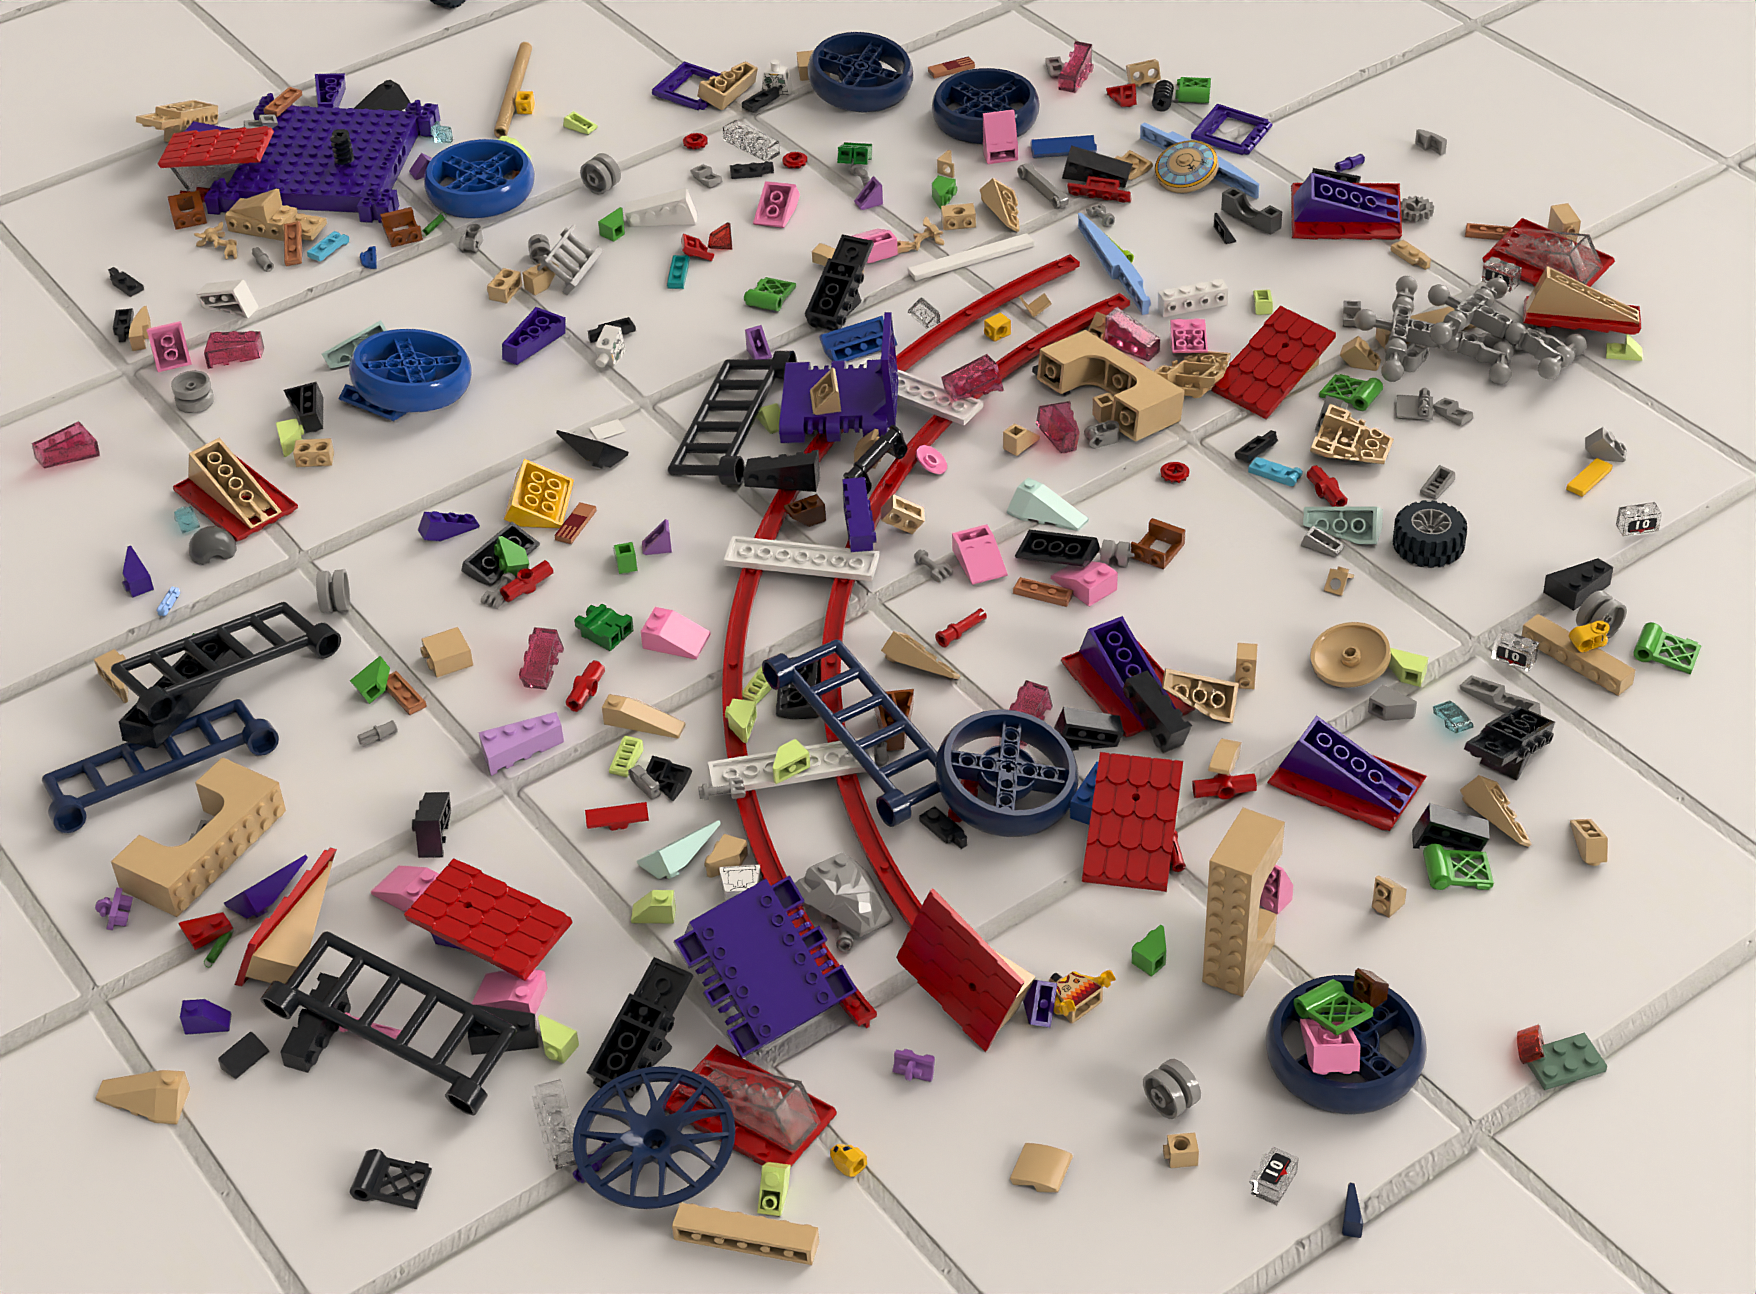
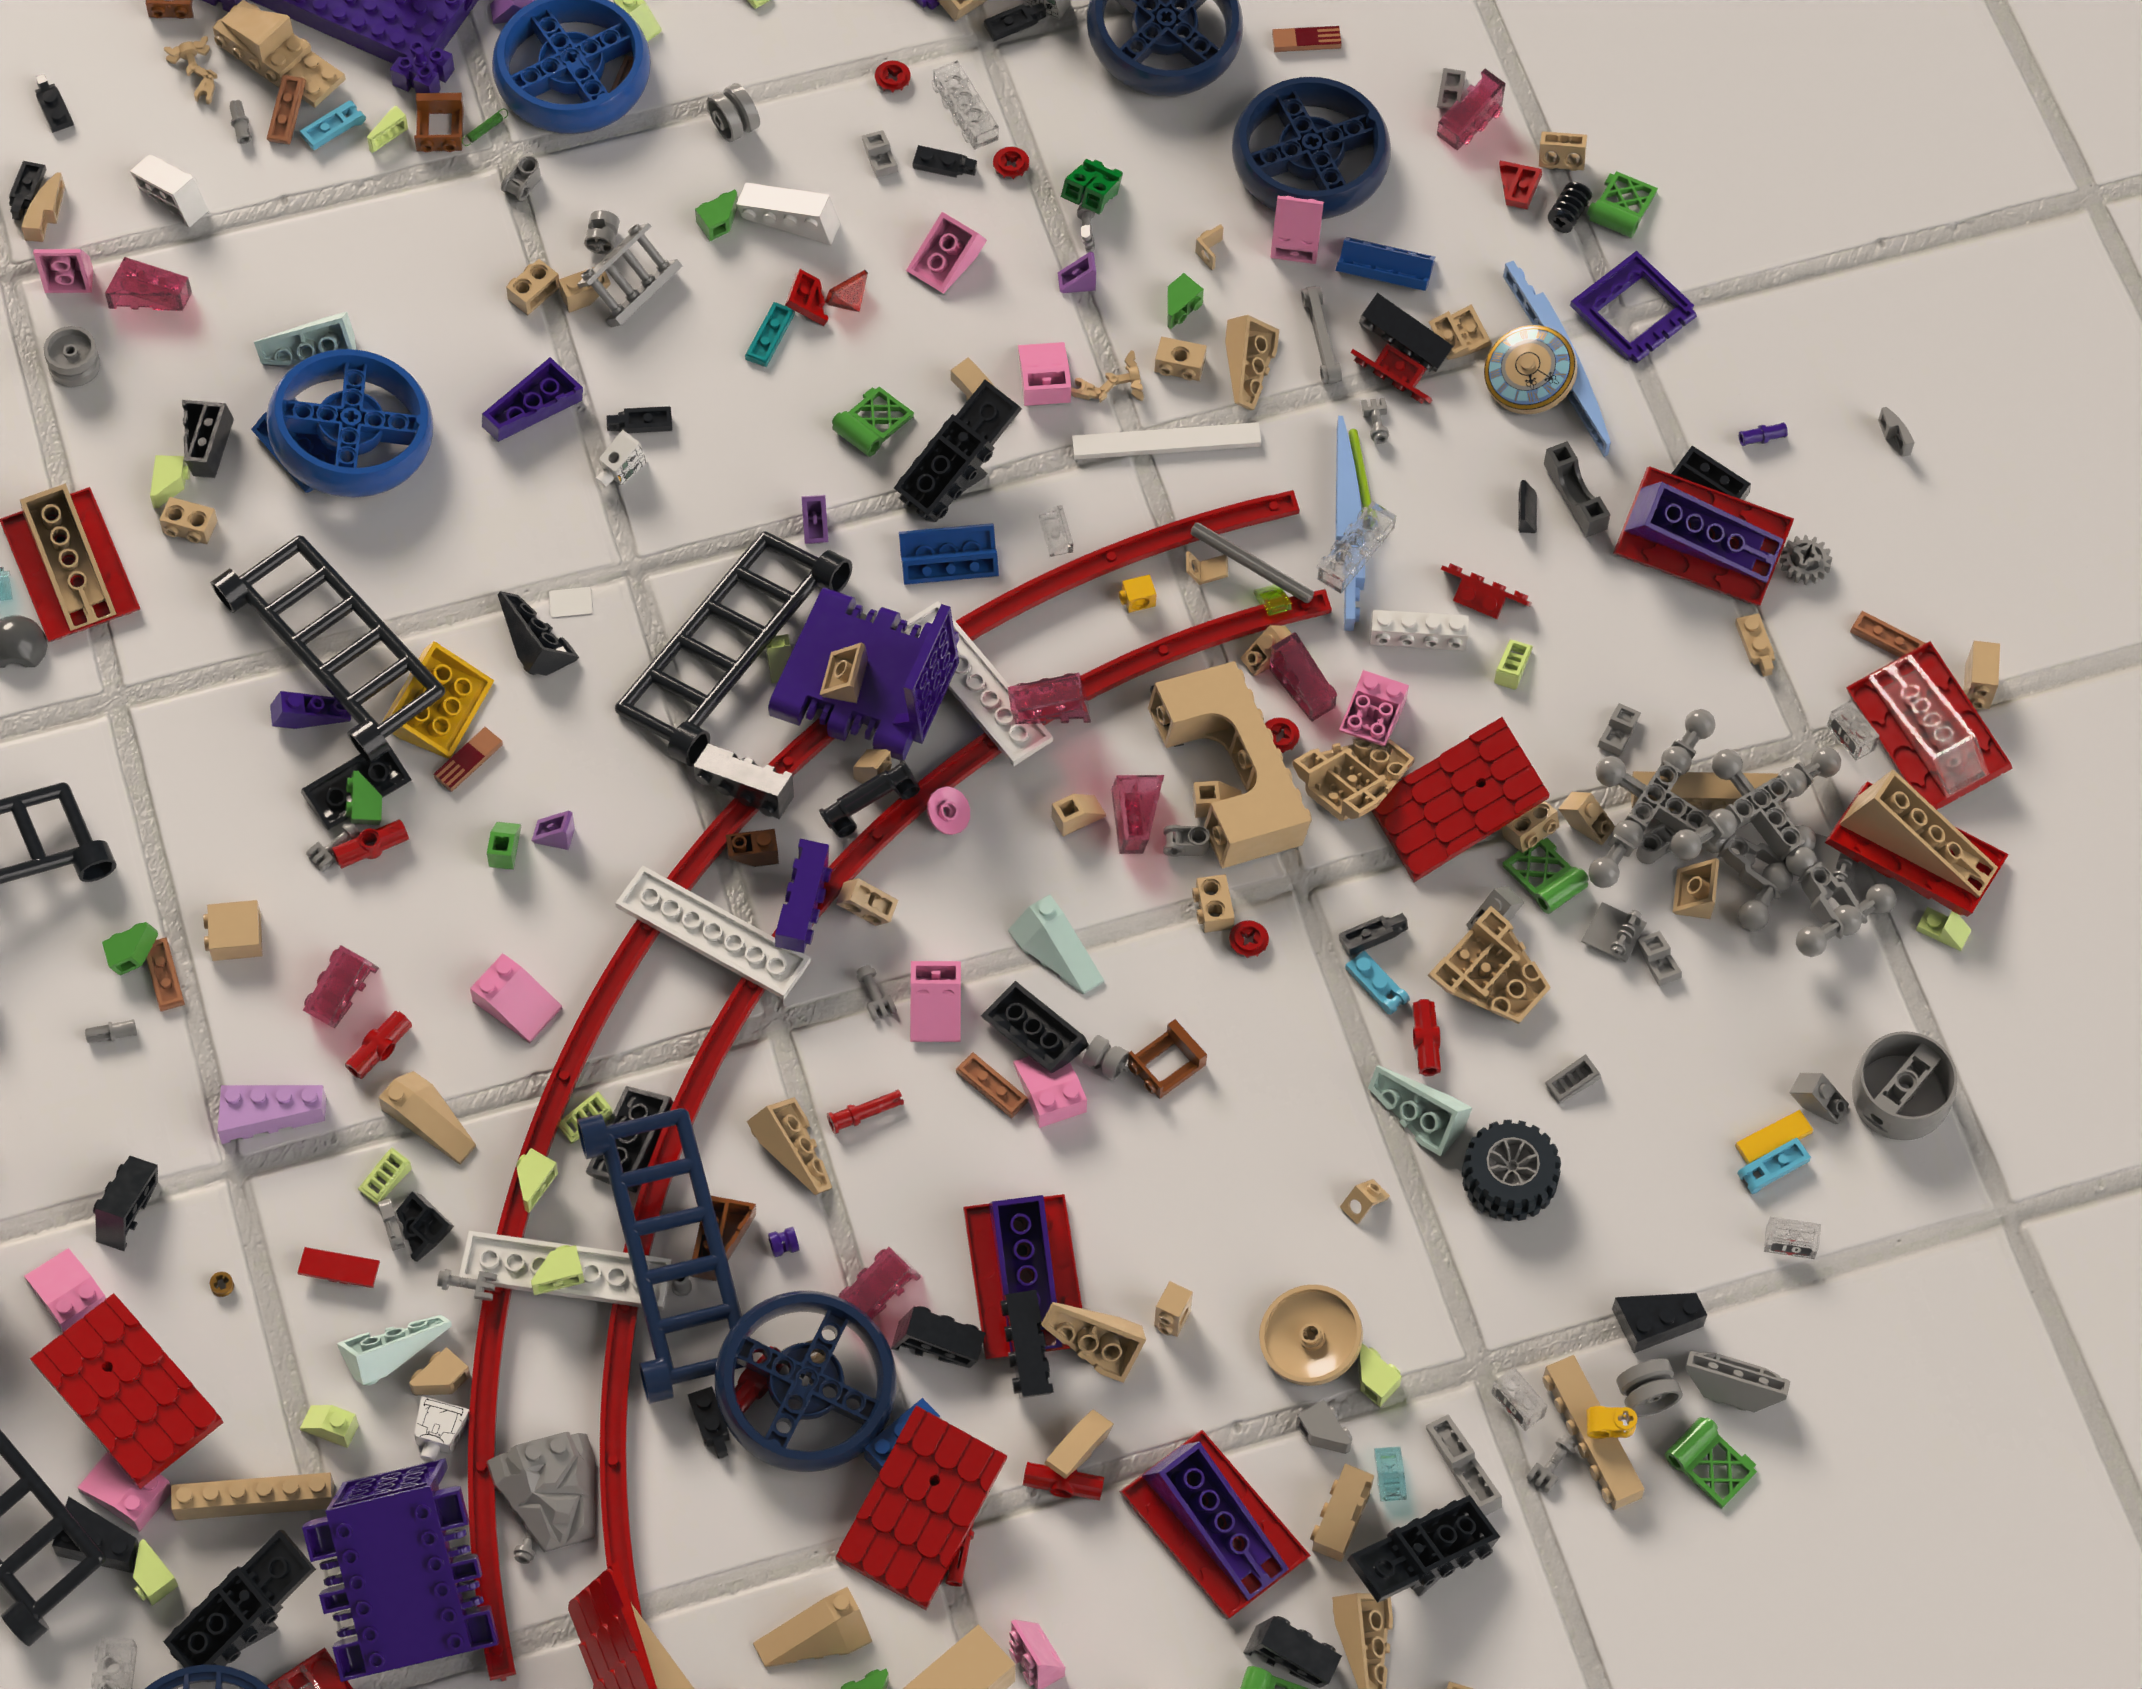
camera: 15 degrees right, 20 degrees up
(333, 590) = (129, 784): light grey wheel -> none
(368, 237) = (387, 129): none -> yellowish green slope
(369, 258) = (379, 165): blue tile -> none
(500, 515) = (368, 735): none -> black fence
(529, 847) = (214, 1283): none -> pearl gold bush
(603, 625) = (436, 953): green hips -> none
(612, 967) = (252, 1496): none -> tan brick
(944, 710) = (789, 1241): none -> dark purple wheel
(1065, 290) = (1252, 562): none -> light grey axle
(1090, 305) = (1273, 599): none -> clear neon green slope
(1098, 918) = (821, 1630): none -> tan wedge
(1129, 263) = (1340, 575): none -> clear brick
(1141, 459) = (1216, 903): none -> tan brick
(1228, 272) = (1480, 595): none -> red bracket
(1319, 541) = (1363, 1128): light grey slope -> none
(1326, 367) = (1531, 827): none -> tan brick
(1435, 741) = (1342, 1512): none -> tan wedge
(1456, 370) = (1696, 889): none -> tan slope
(1562, 668) = (1565, 1446): none -> light grey hinge
(1599, 489) = (1774, 1165): none -> medium azure plate
(1654, 439) = (1924, 1058): none -> light grey cylinder
(1657, 600) = (1735, 1381): none -> light grey wedge

